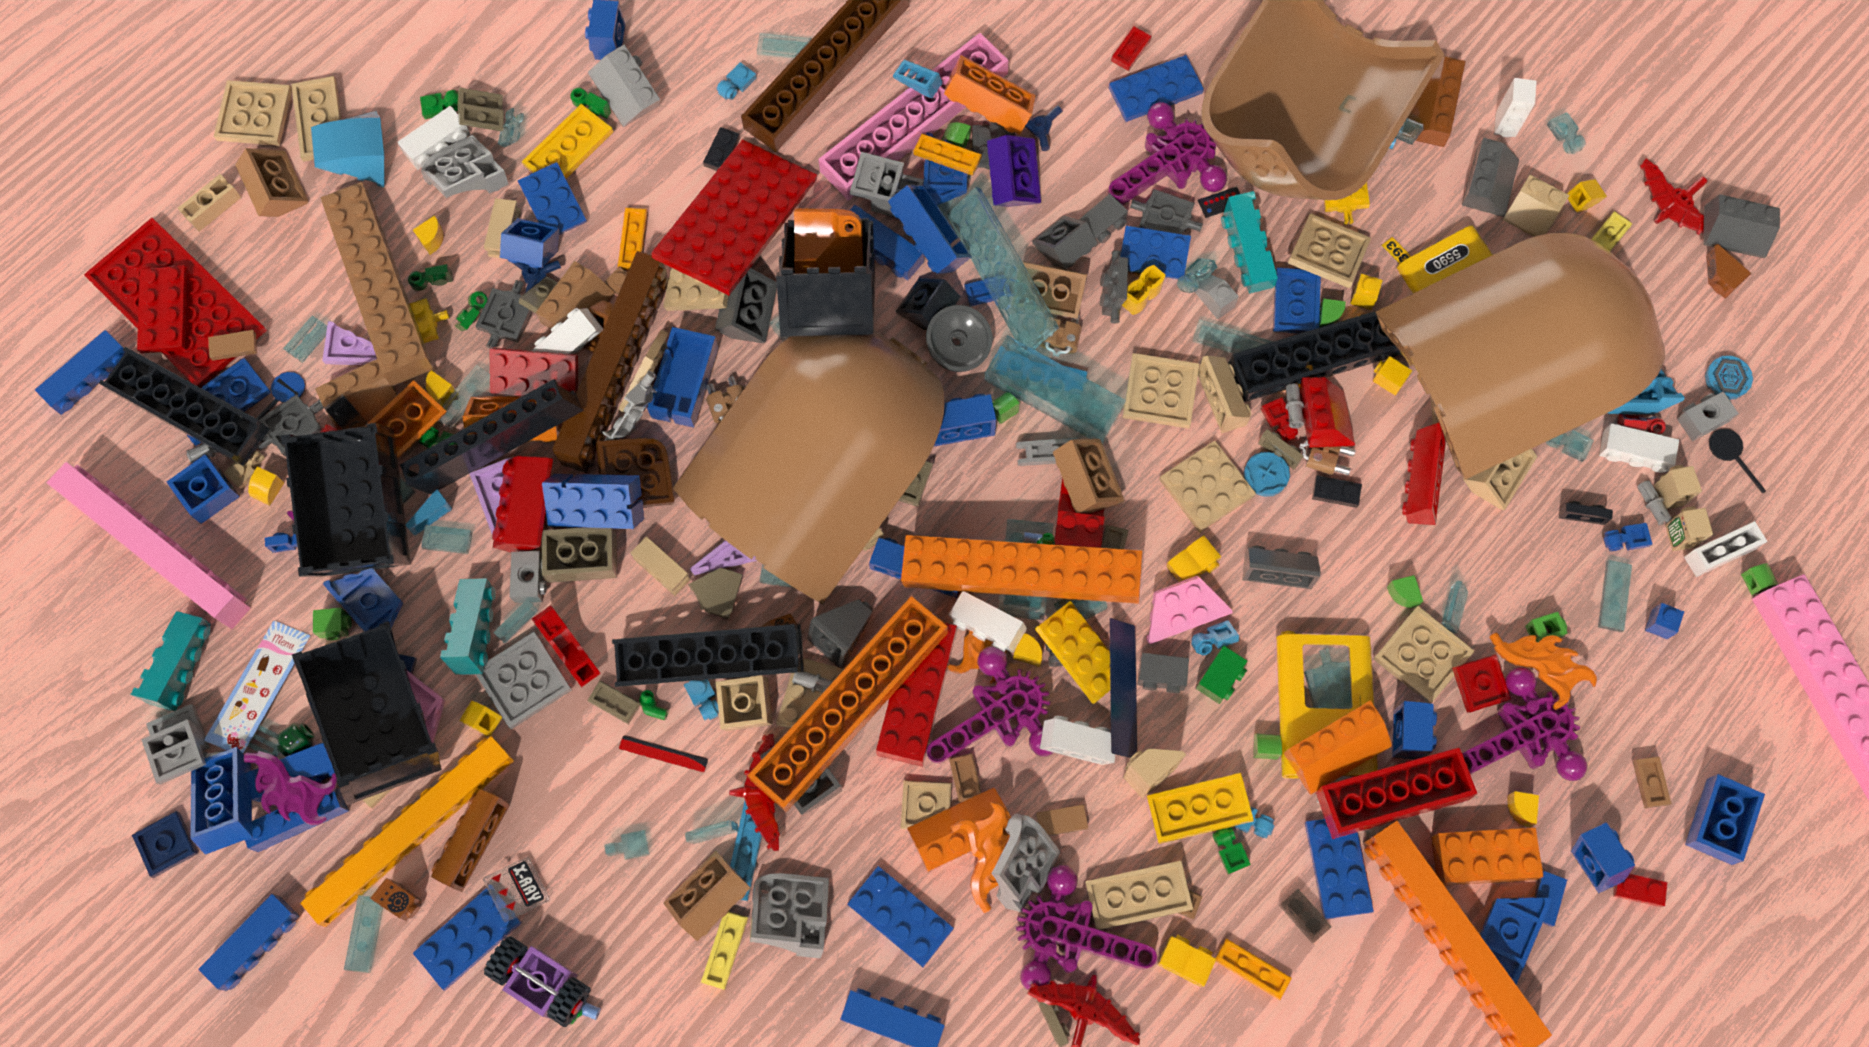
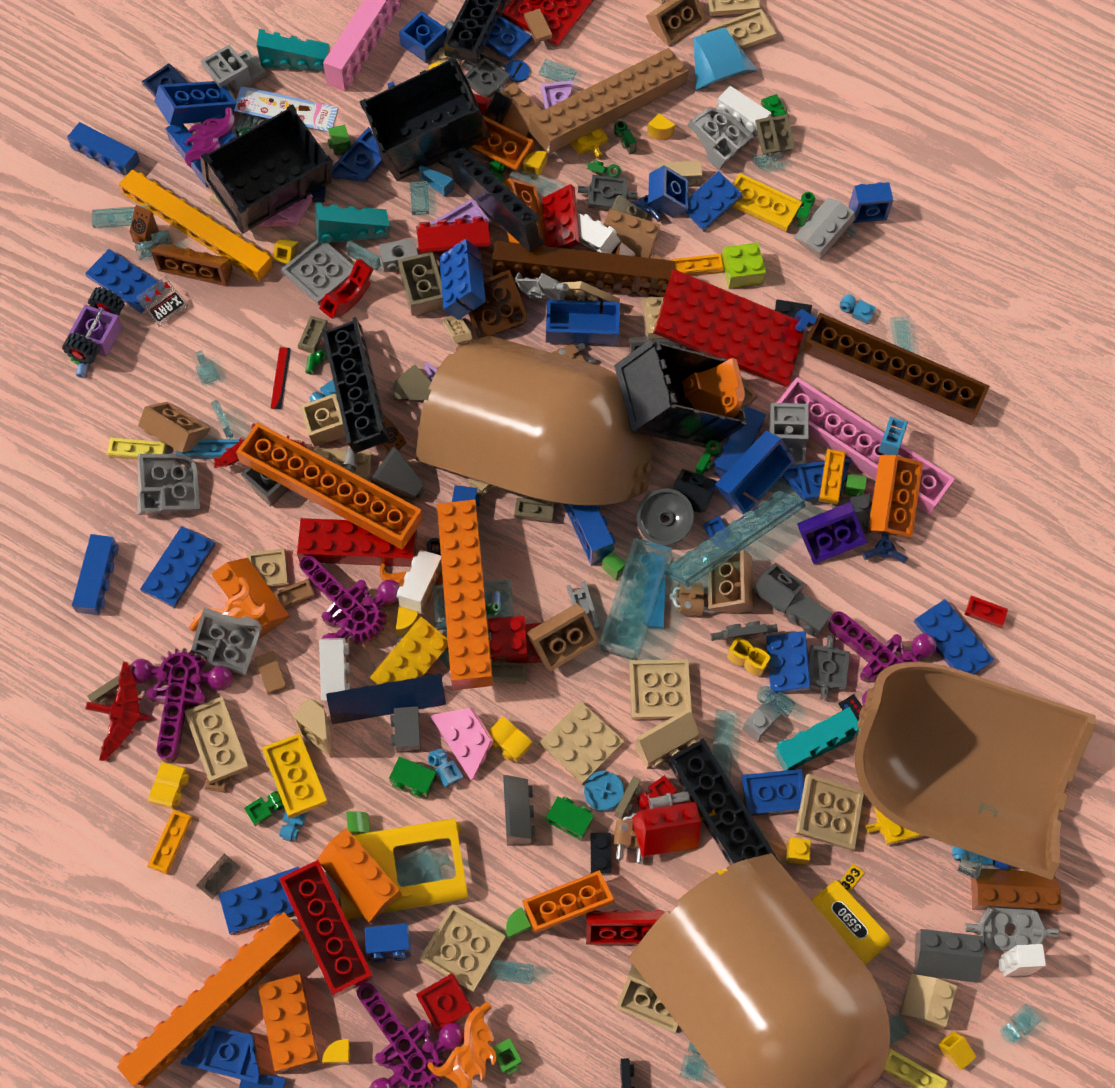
camera: 75 degrees right, 5 degrees down
(422, 884) = (144, 248): none -> clear light blue slope
(650, 185) = (743, 265): none -> lime brick
(660, 566) = (425, 341): tan piece -> none
(664, 519) = (457, 330): none -> tan plate
(745, 136) = (804, 319): none -> blue tile
(895, 283) = (705, 463): none -> green plate
(940, 596) = (429, 546): none -> black bush
(1295, 513) = (570, 817): none -> green brick
(1330, 311) = (768, 822): bright green brick -> none
(1397, 530) = (567, 901): none -> orange slope
(1480, 102) = (1027, 925): none -> light grey plate

